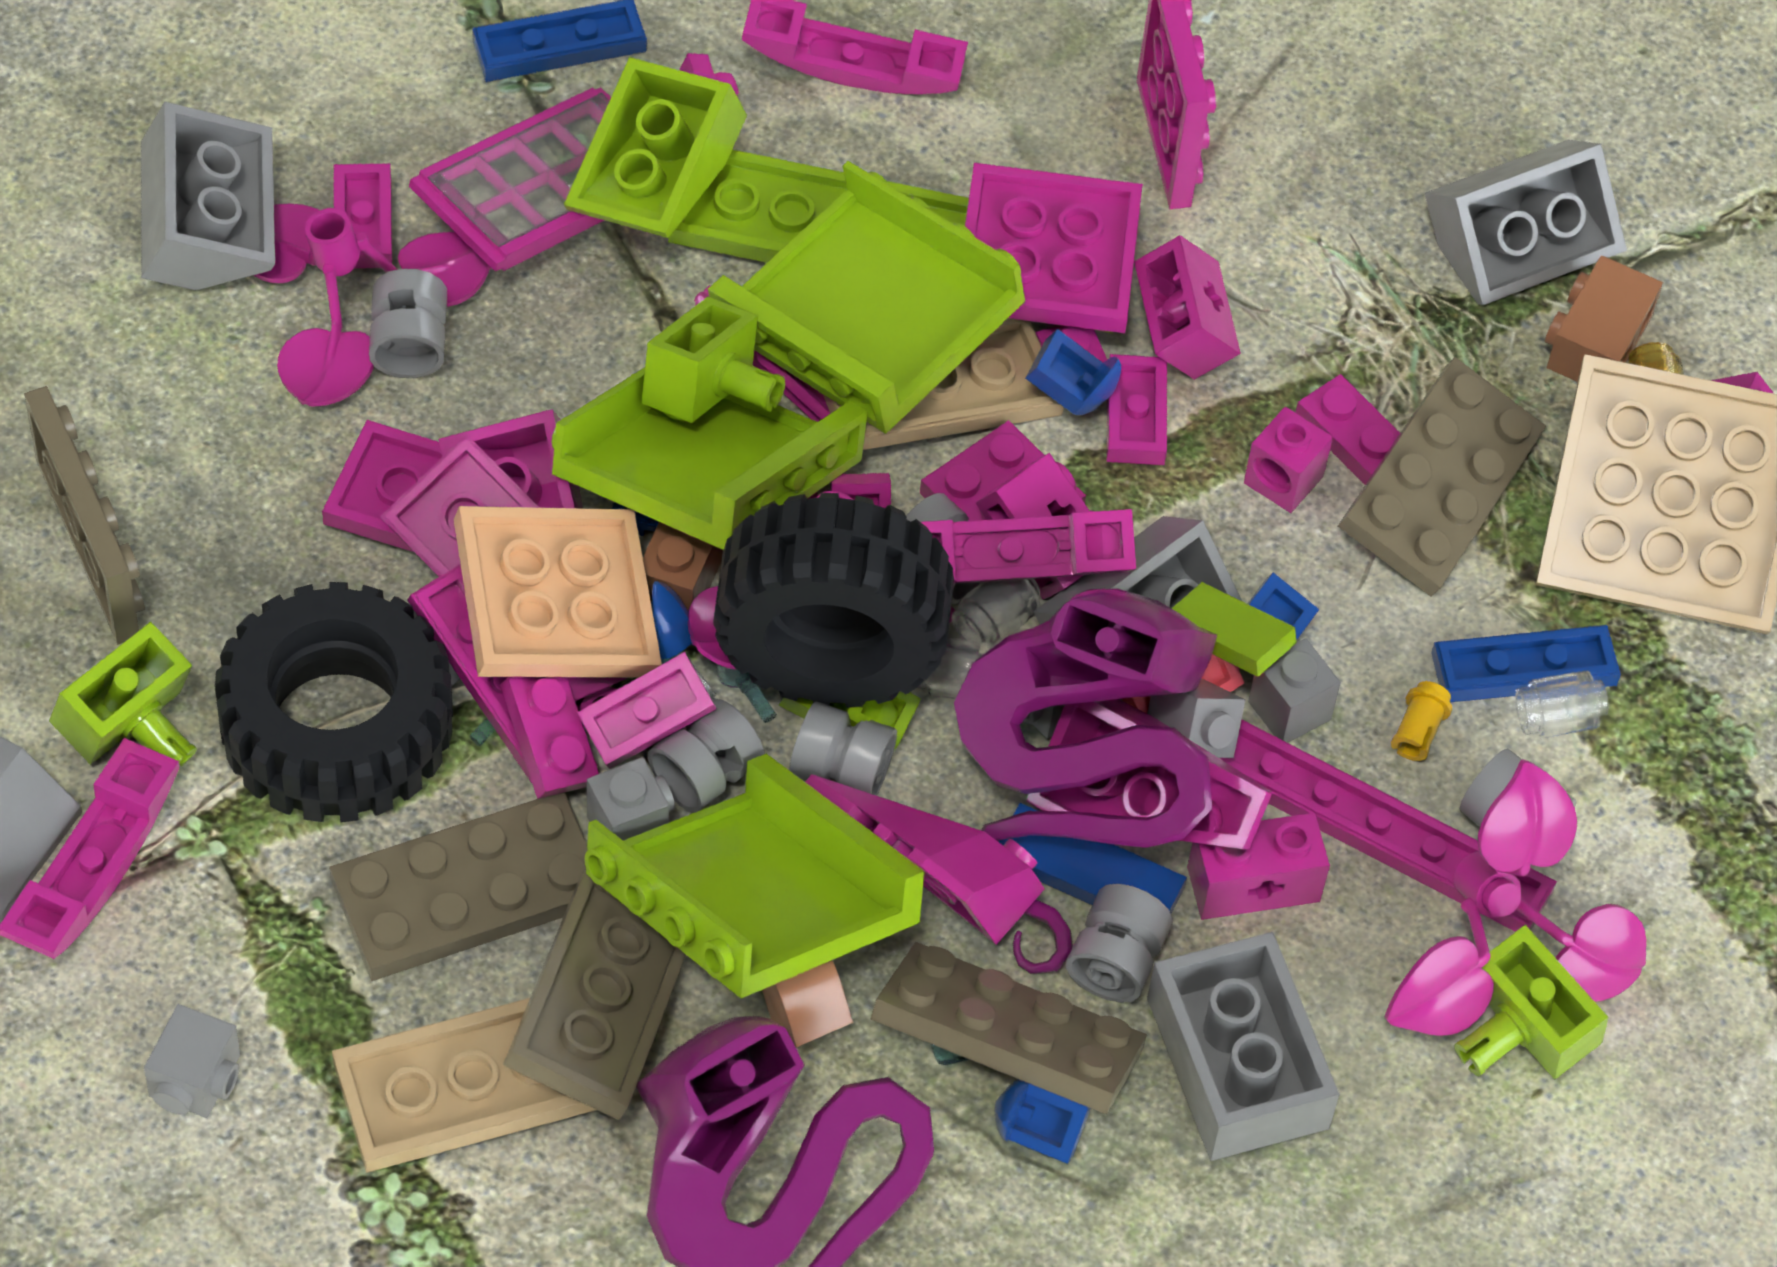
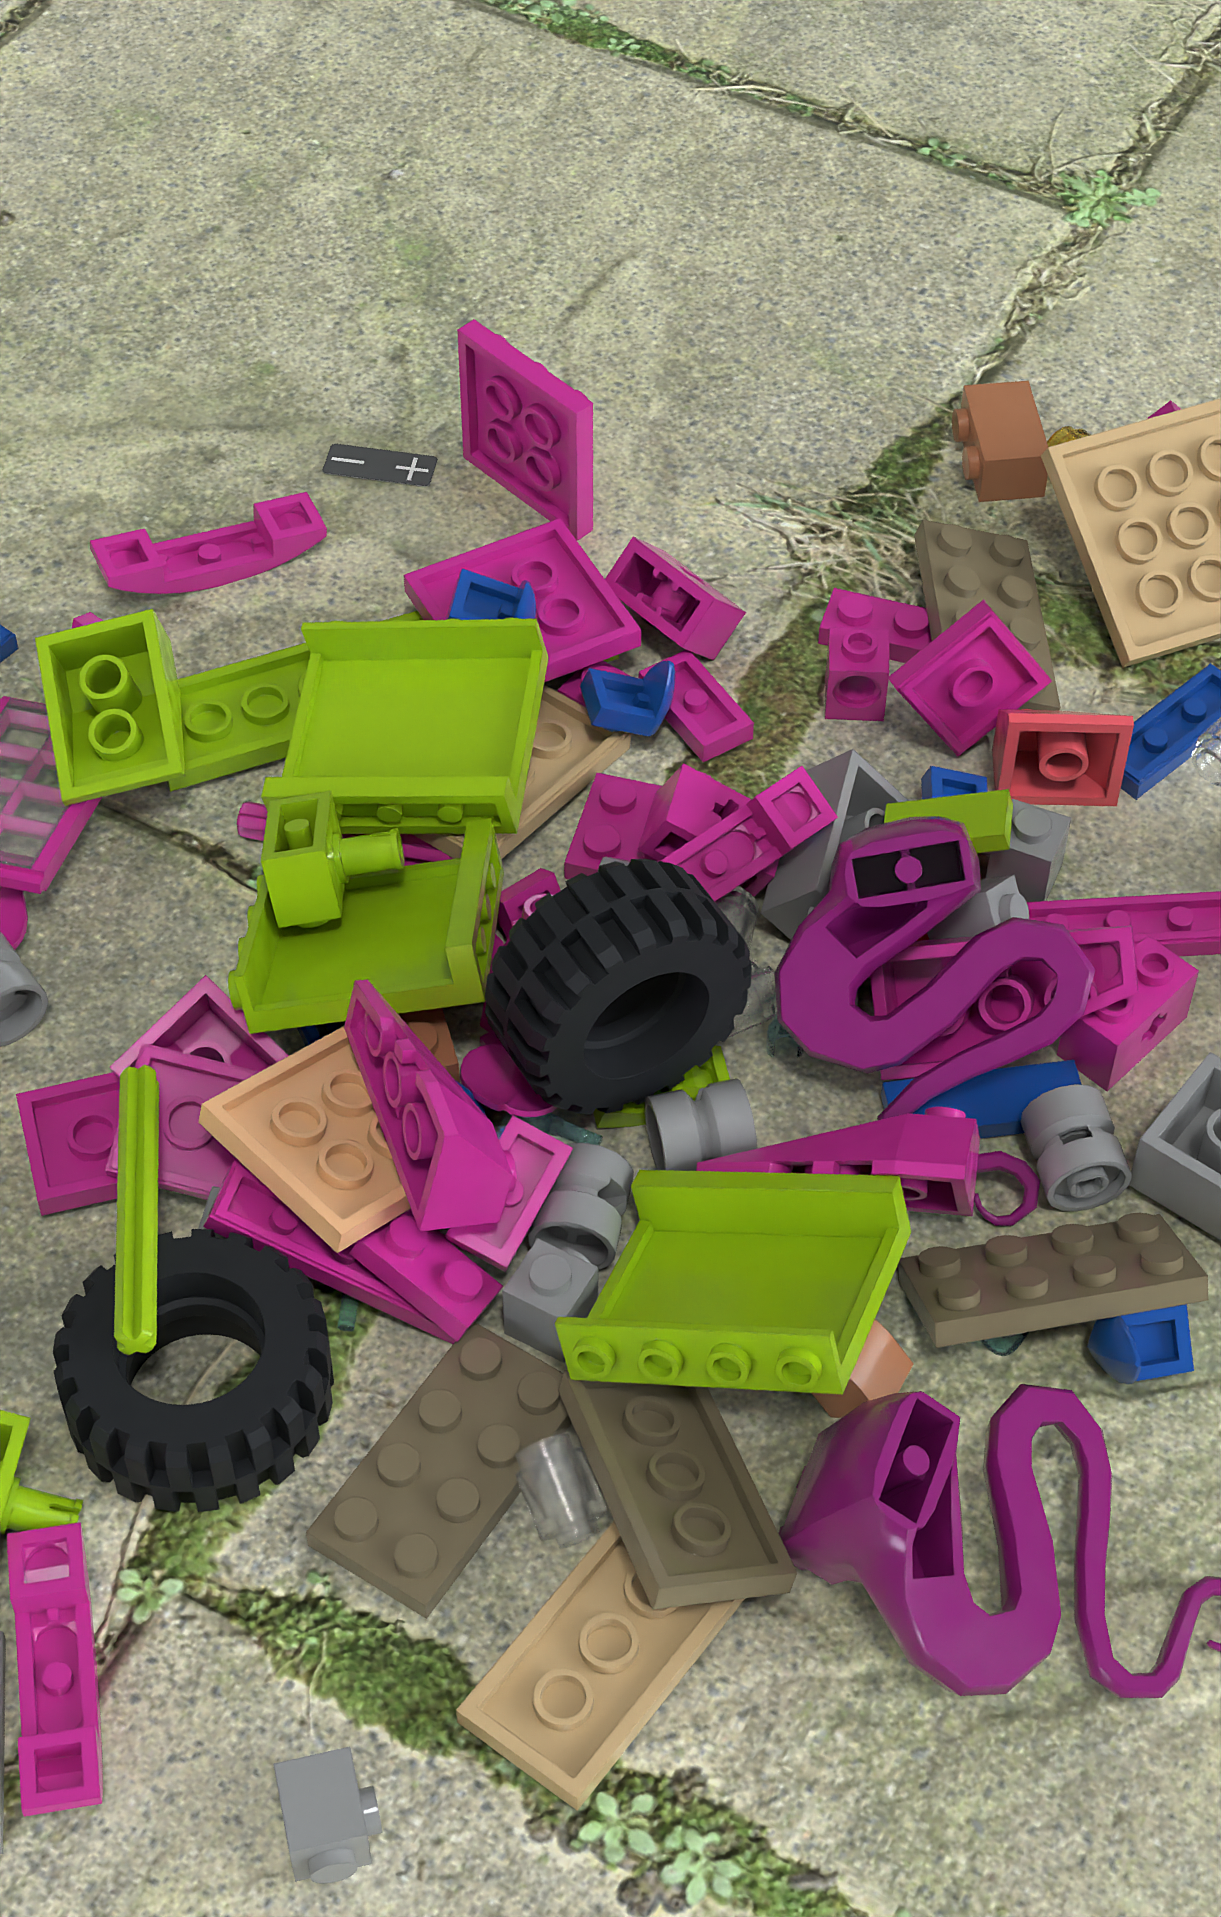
camera: 30 degrees left, 5 degrees down
(363, 556) = (137, 1211): none -> lime axle
(520, 947) = (560, 1490): none -> clear brick
(611, 633) = (432, 1127): none -> dark pink wedge
(1009, 226) = (488, 598): none -> blue plate
(1060, 48) = (380, 465): none -> dark grey sticker
(1357, 518) = (968, 677): none -> dark pink plate
(1385, 622) = (1061, 756): none -> coral slope
(1426, 709) = (1136, 808): yellow pin -> none
(1528, 220) = (874, 394): light grey slope -> none

